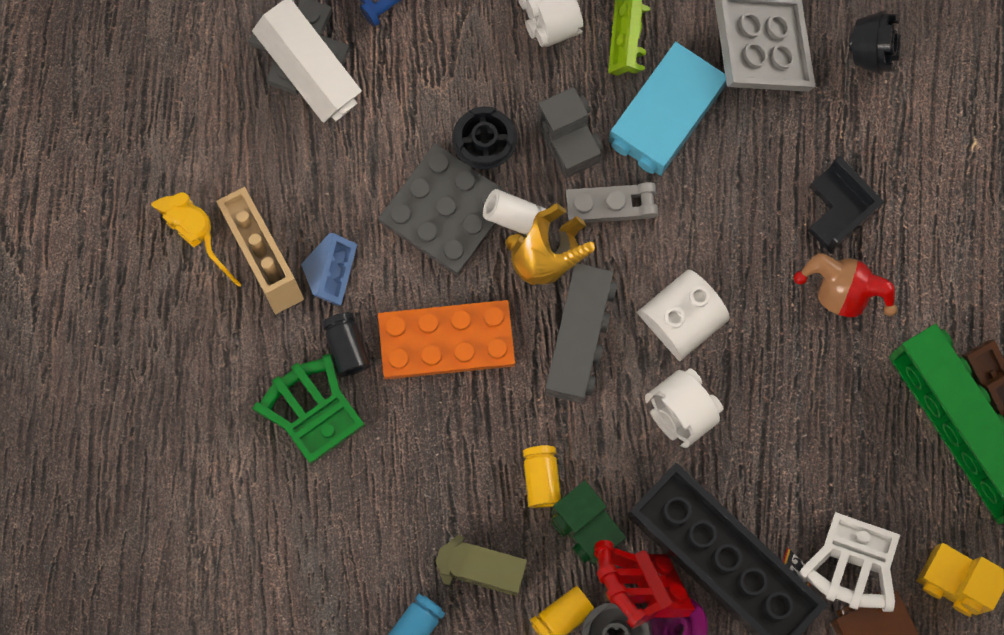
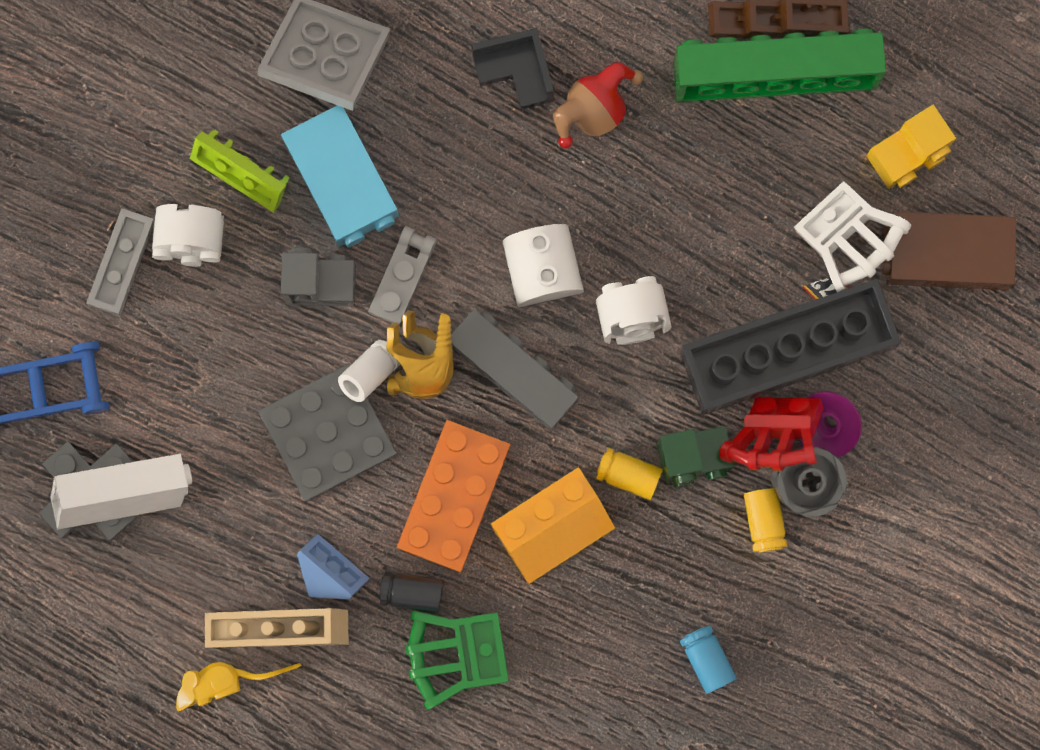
camera: 60 degrees left, 5 degrees up
(463, 434) = (553, 525): none -> light orange slope
(480, 566) = (683, 572): olive piece -> none
(484, 138) = (282, 361): black cone -> none

